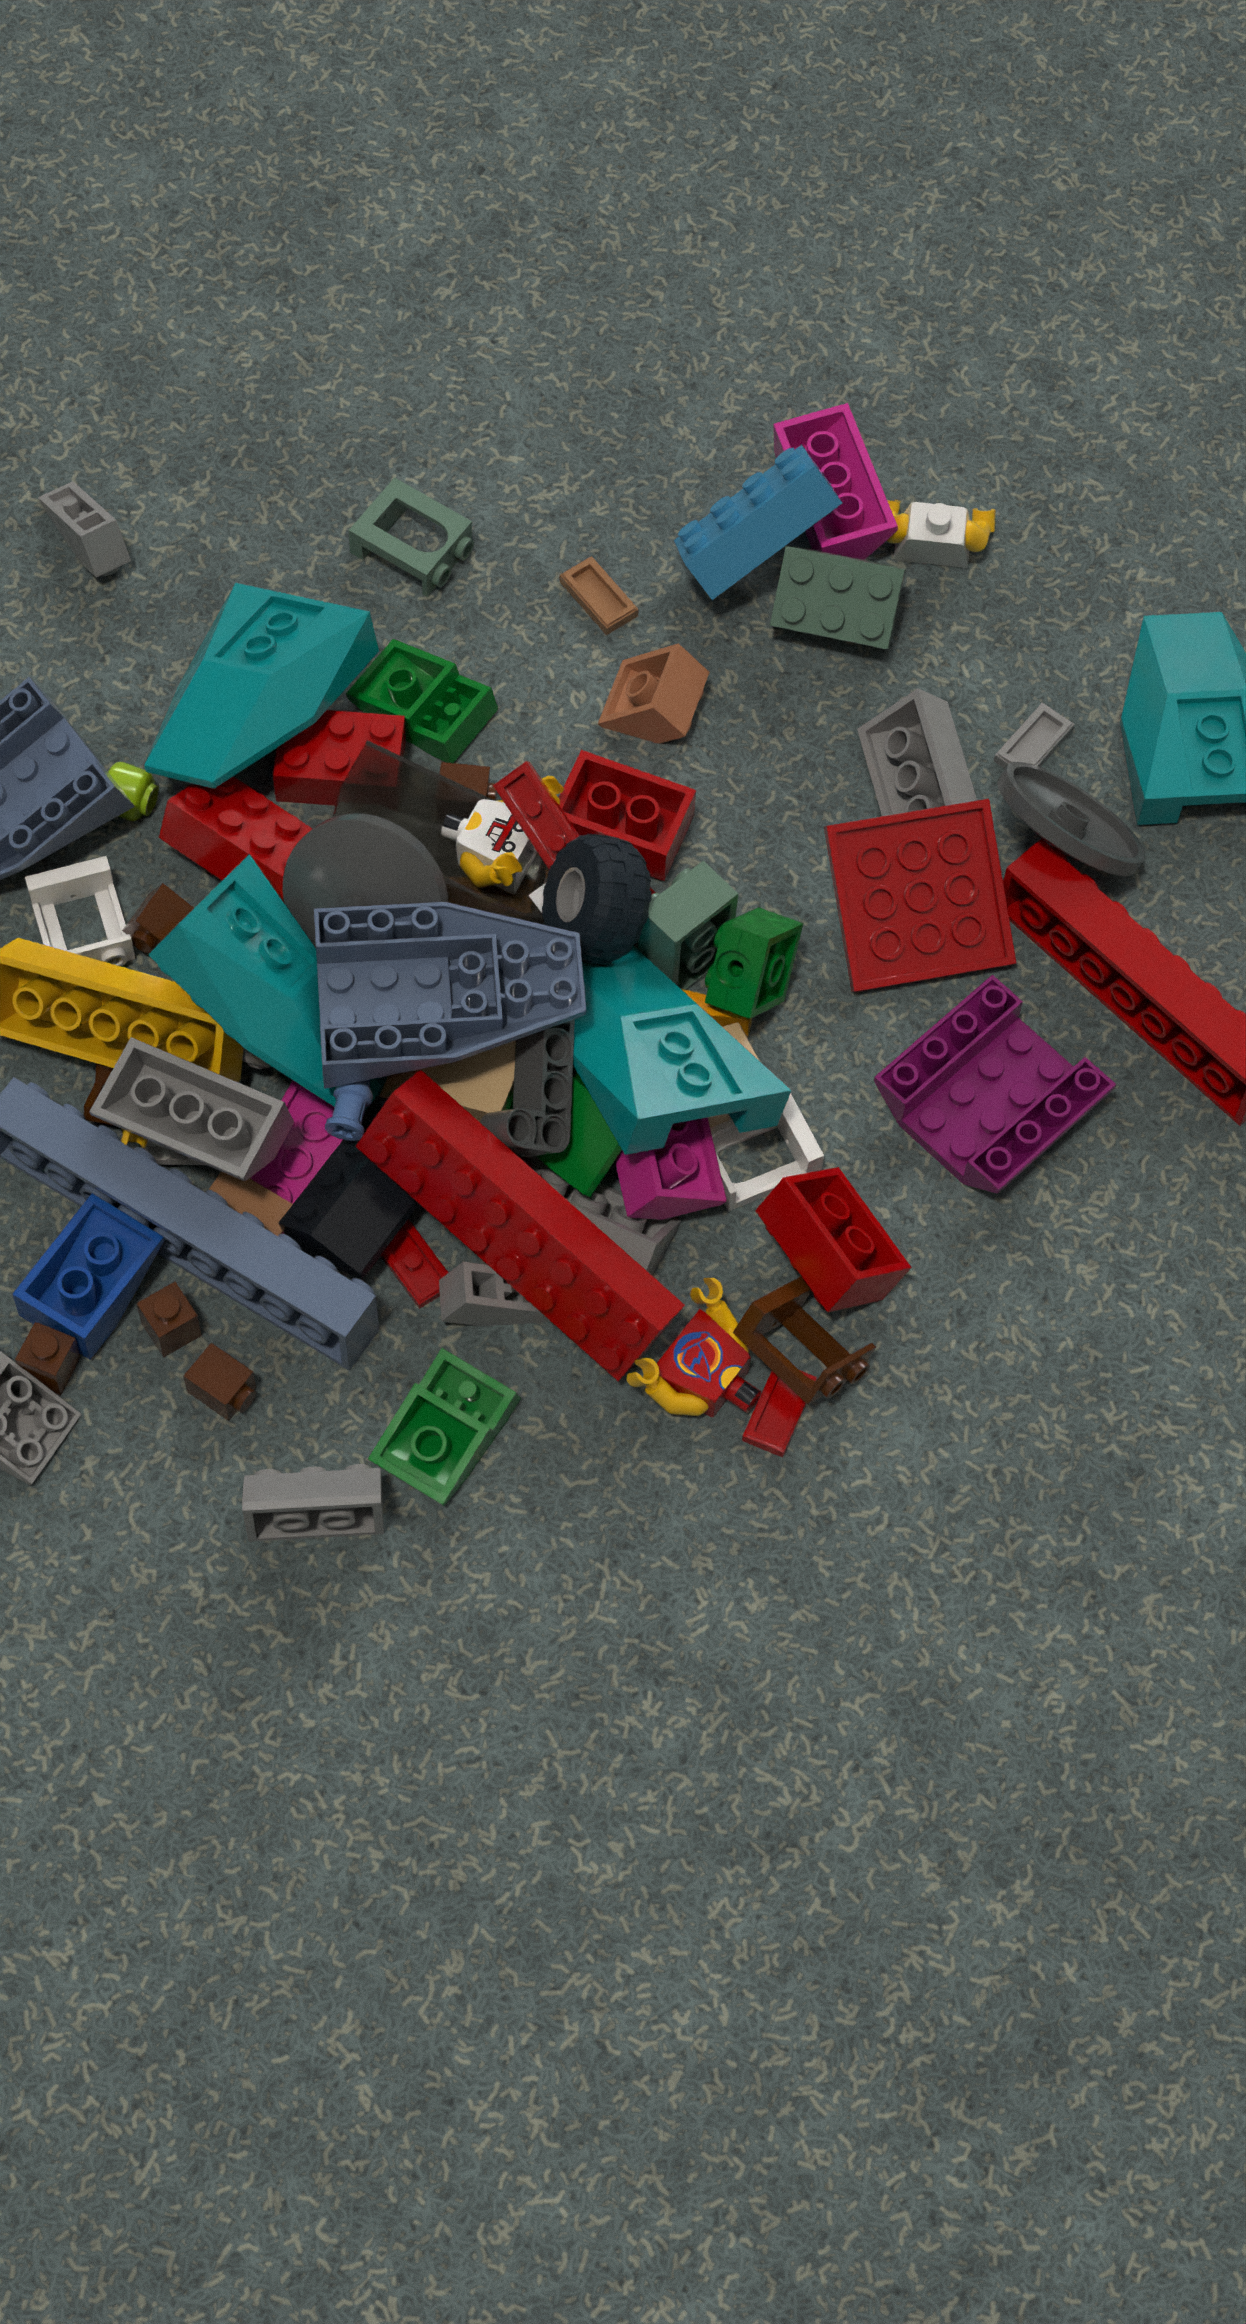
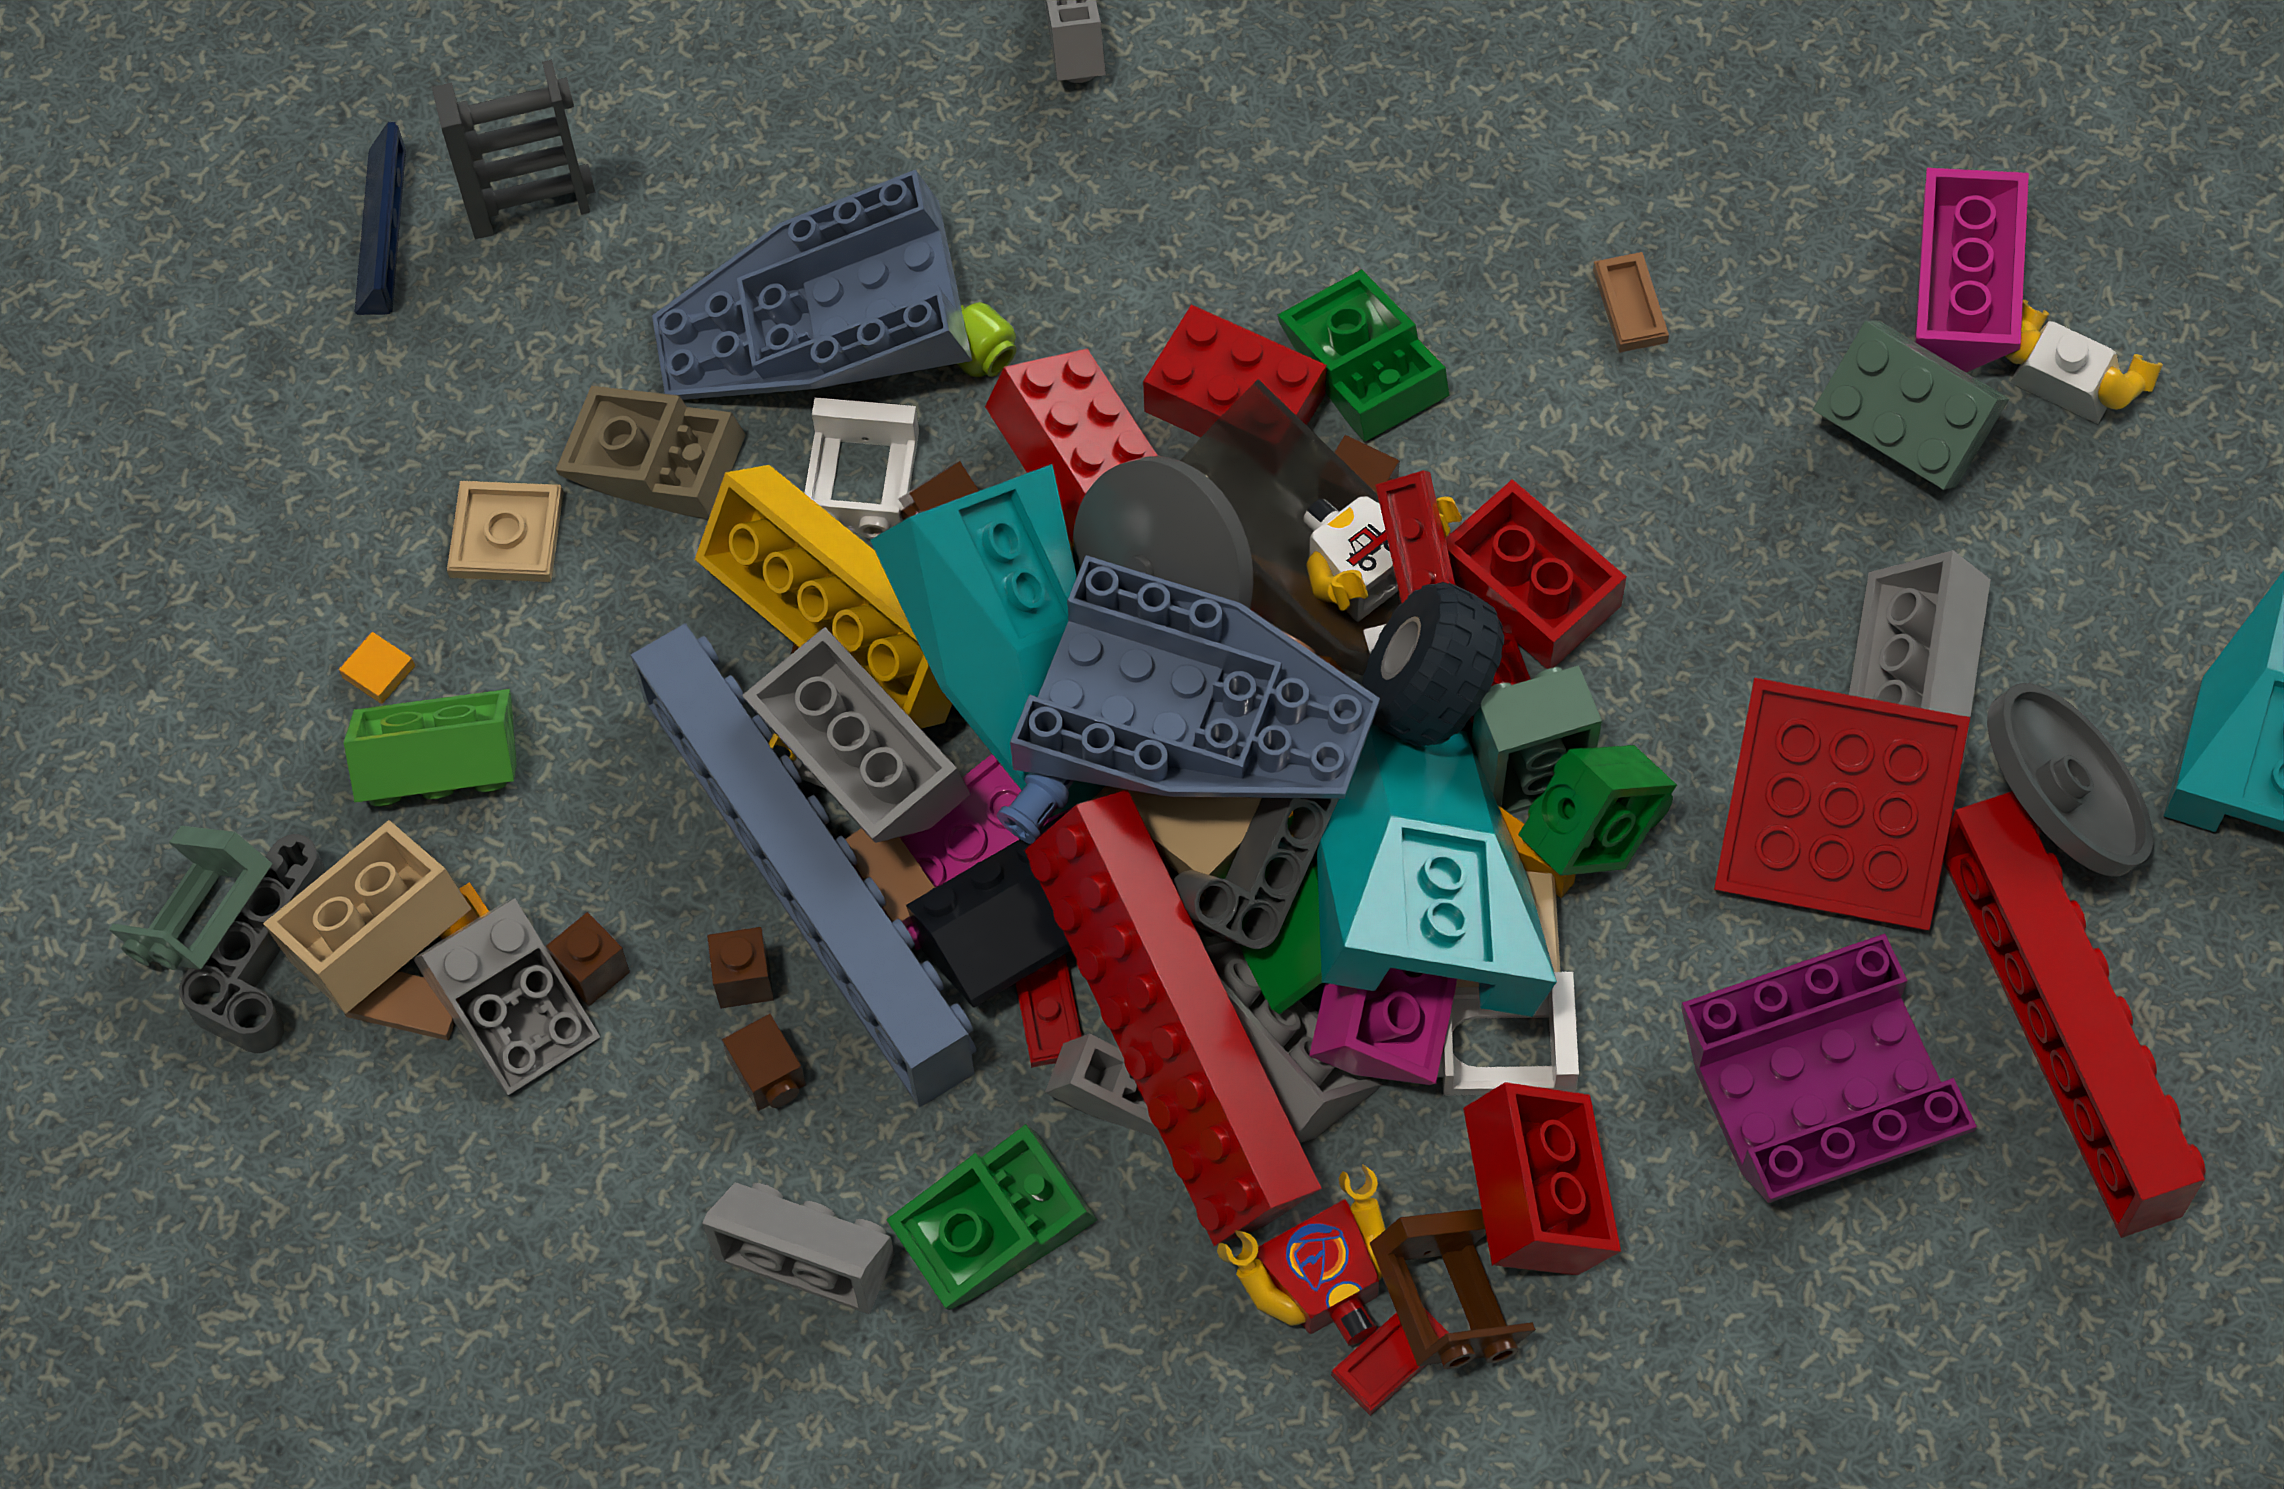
camera: 30 degrees right, 0 degrees up
(89, 1274) = (672, 881): blue slope -> none
(258, 682) = (1174, 267): teal wedge -> none
(433, 568) = (1445, 203): sand green panel -> none
(655, 695) = (1640, 445): nougat slope -> none
(756, 521) = (1846, 278): dark azure brick -> none
(1035, 738) = (2083, 664): light grey tile -> none

